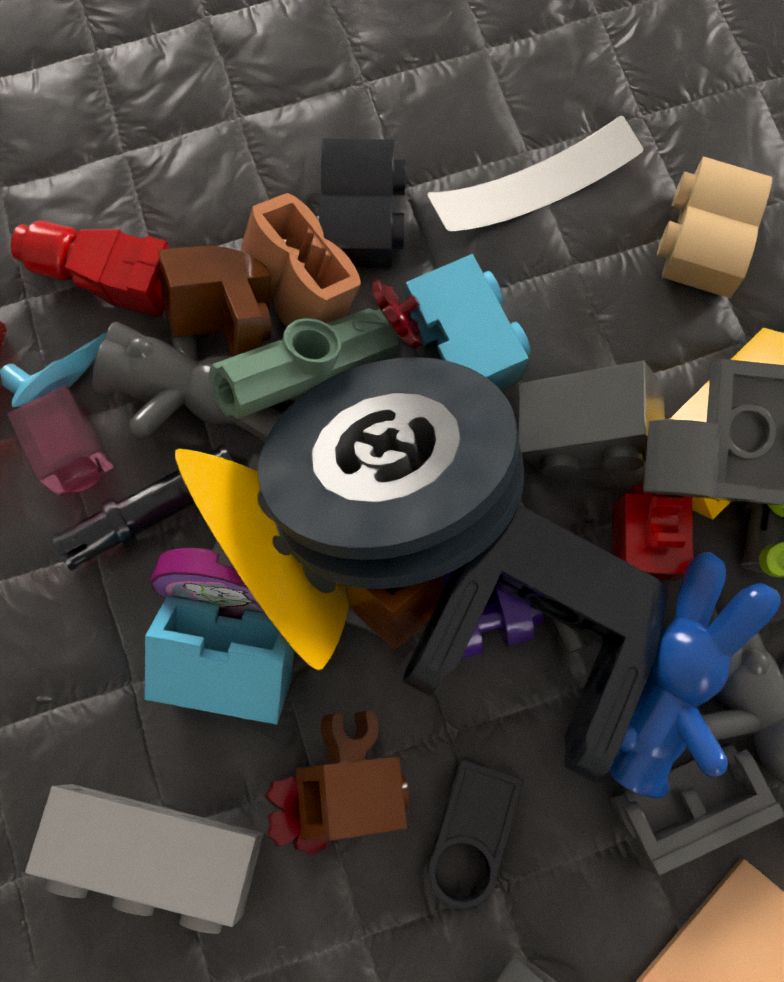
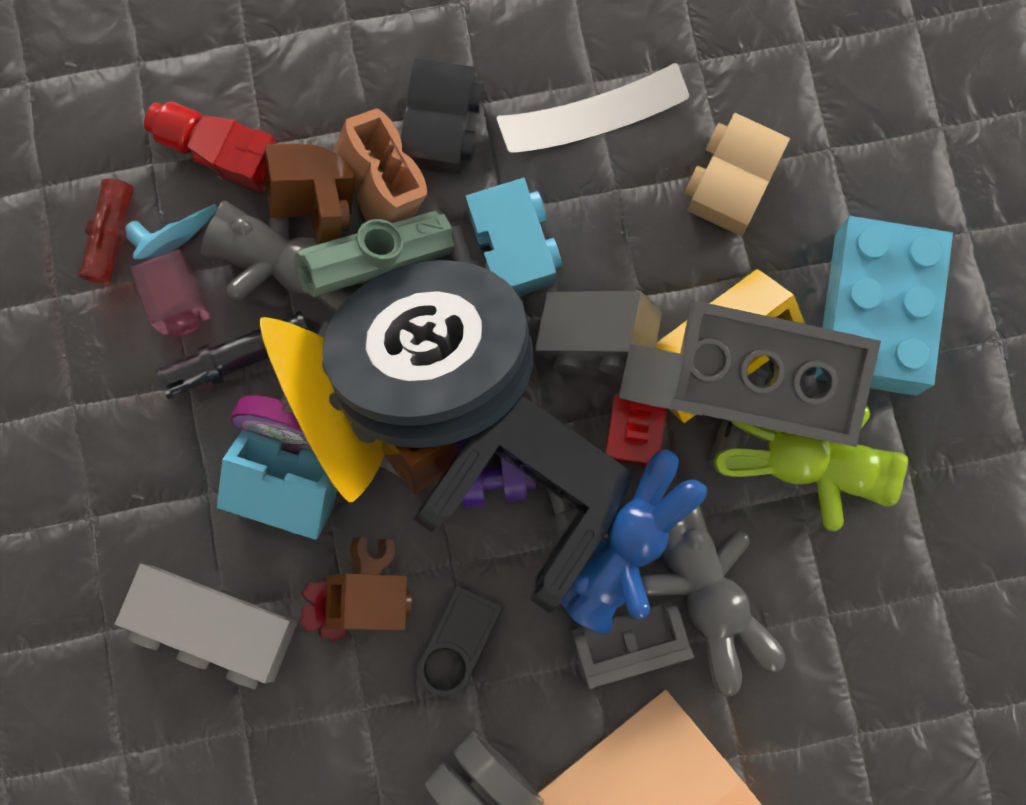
camera: 10 degrees right, 5 degrees up
(398, 314) = (454, 221): dark red plant -> none

